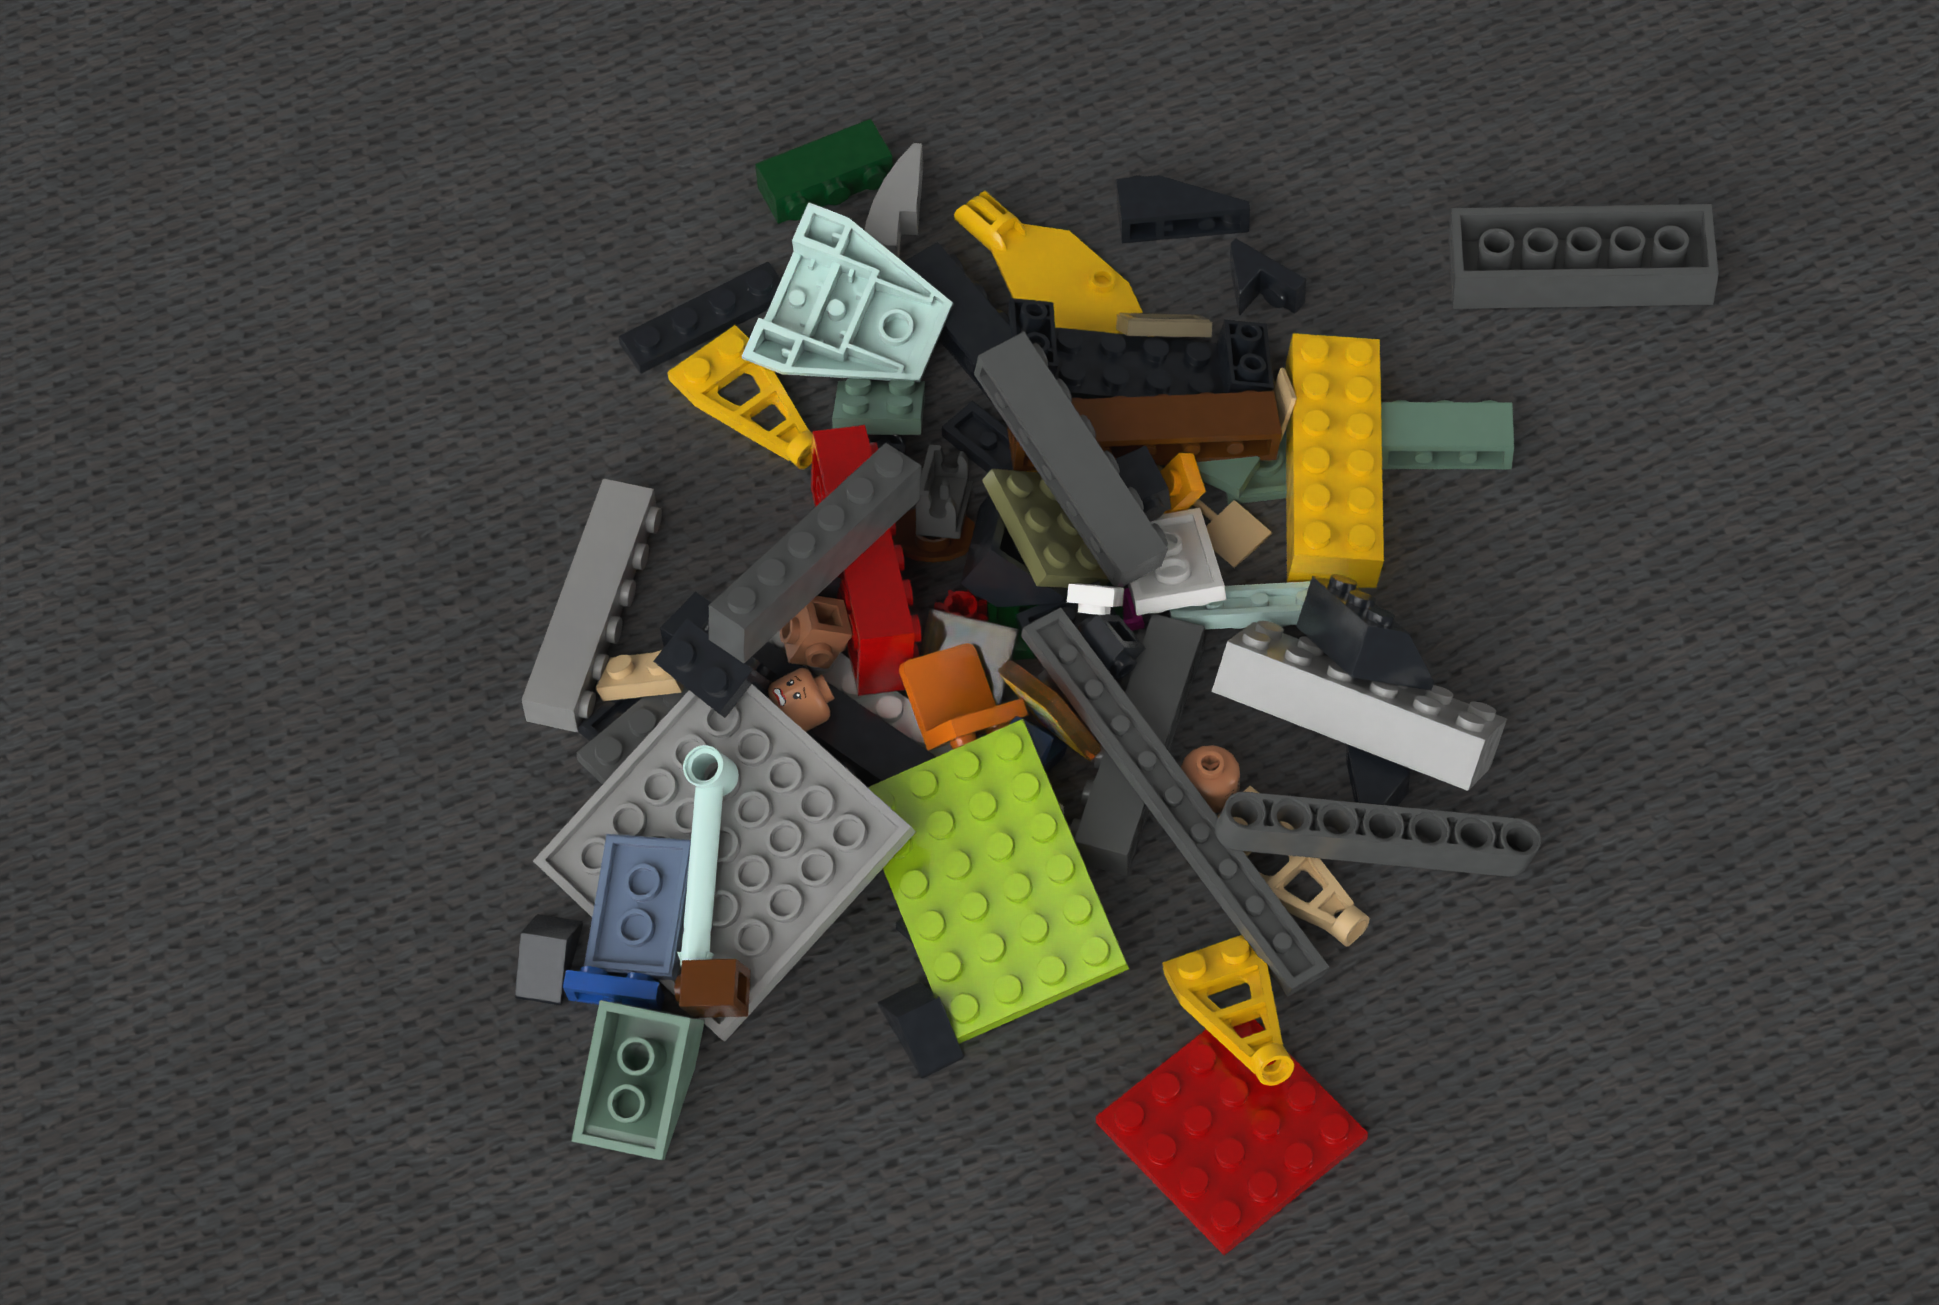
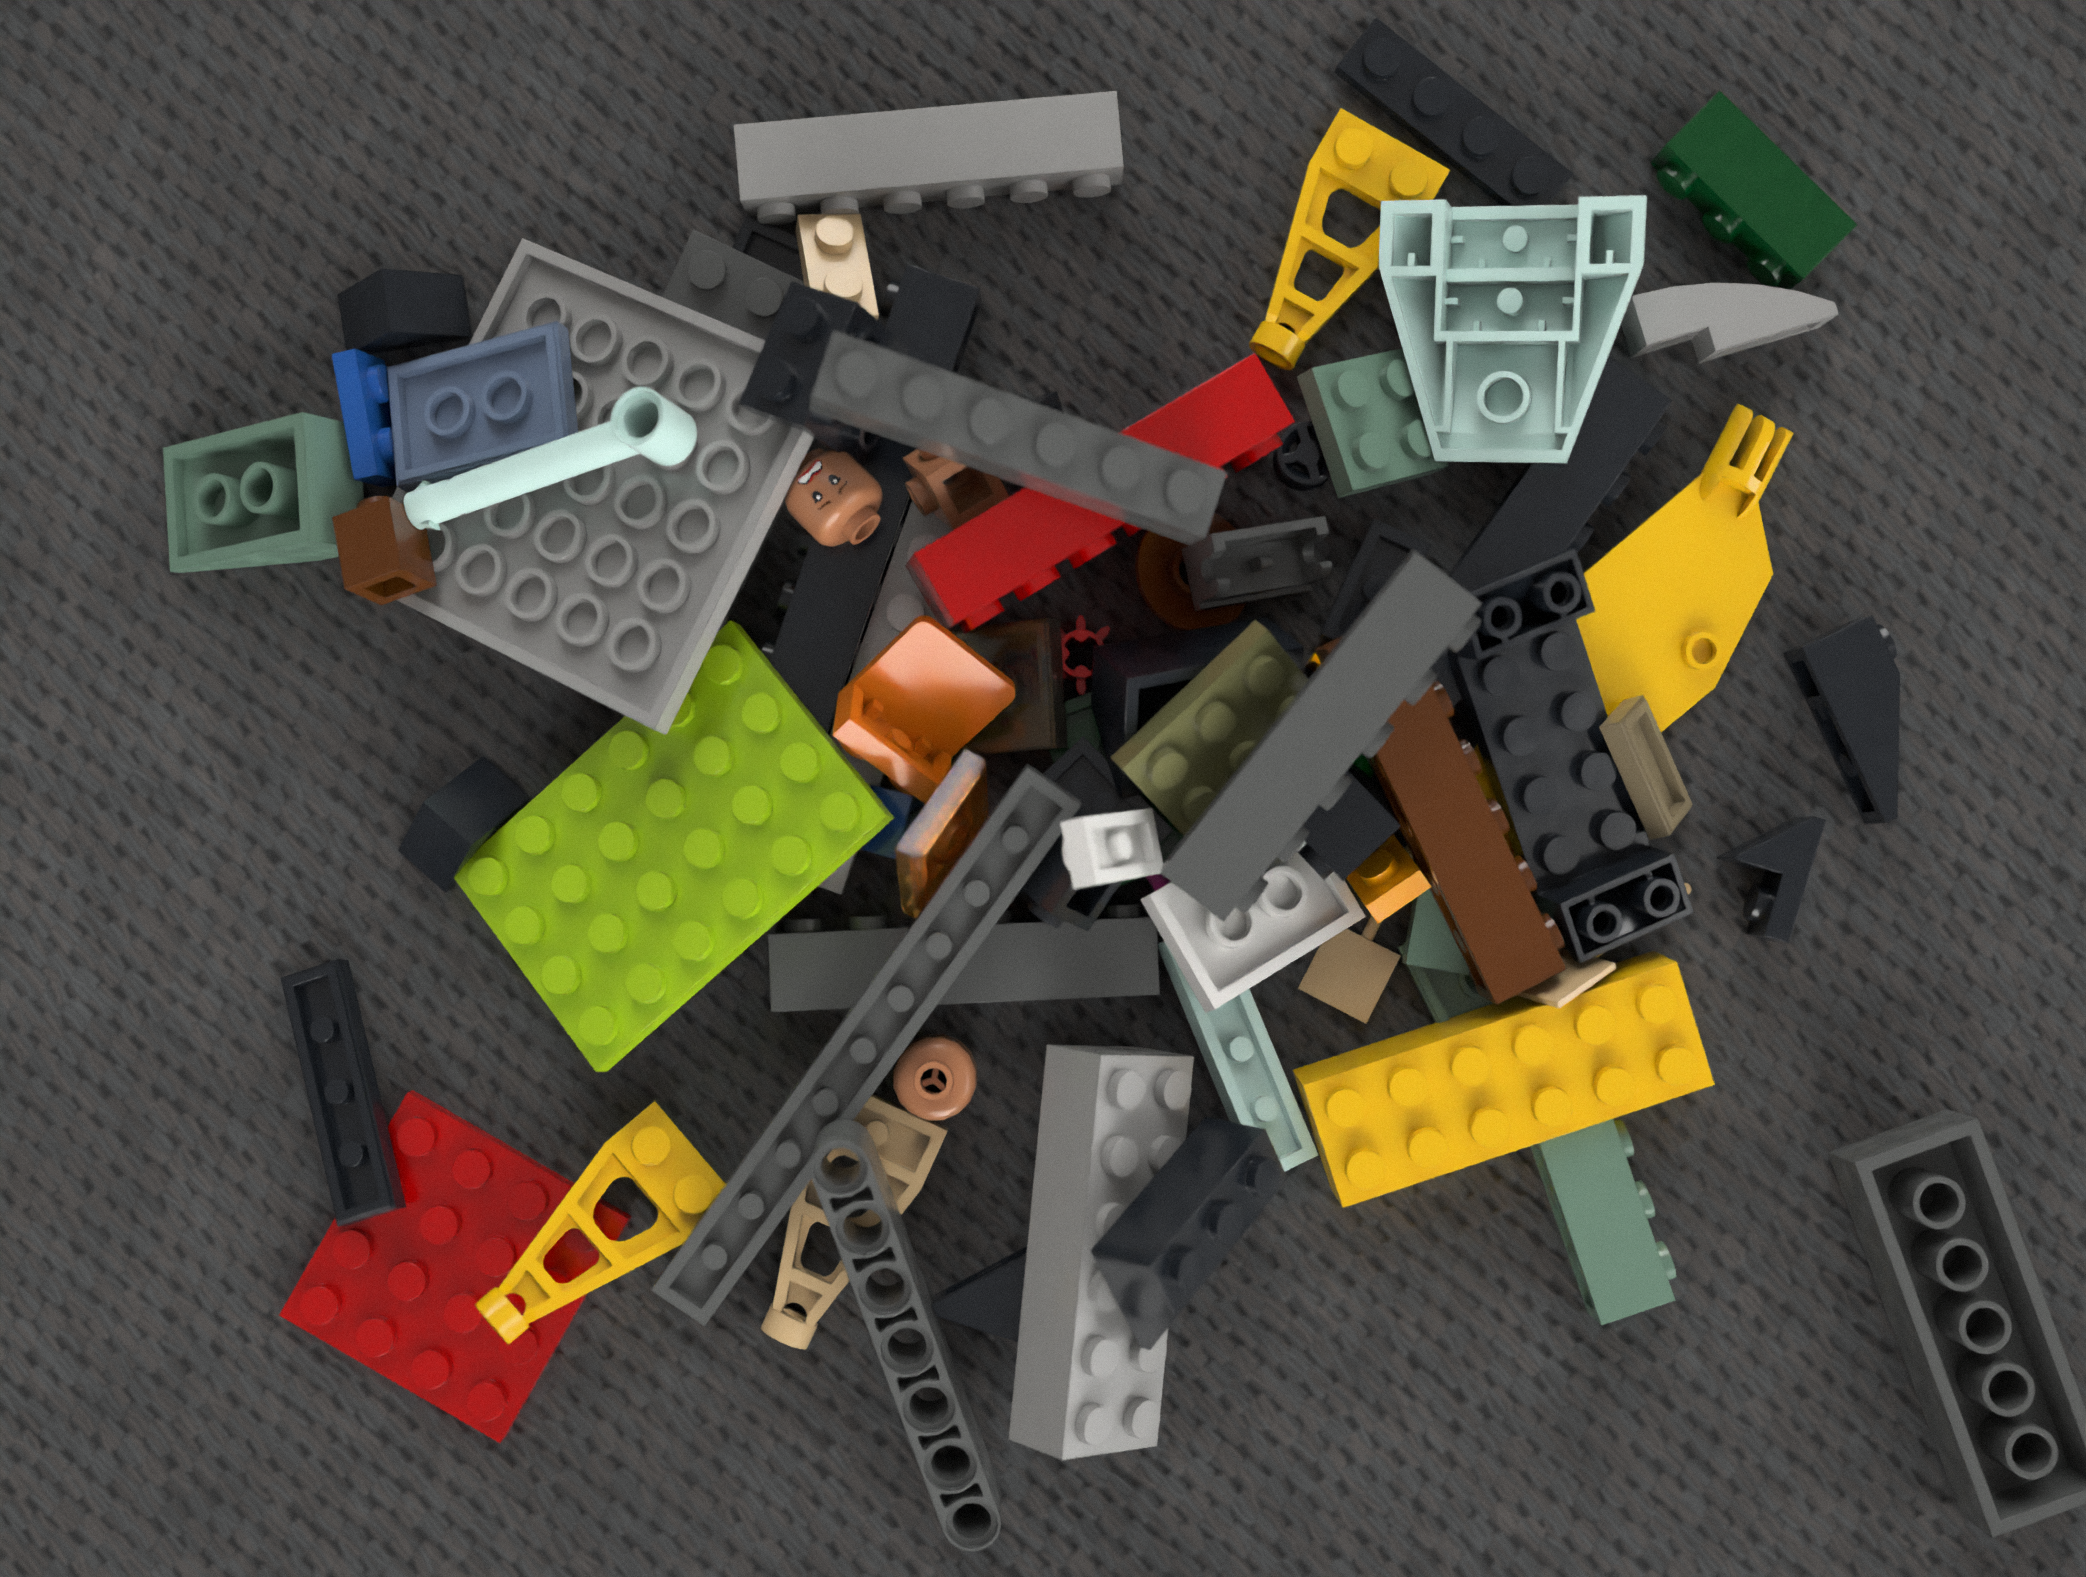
camera: 70 degrees right, 30 degrees up
(1079, 1152) = (343, 1092): none -> black tile

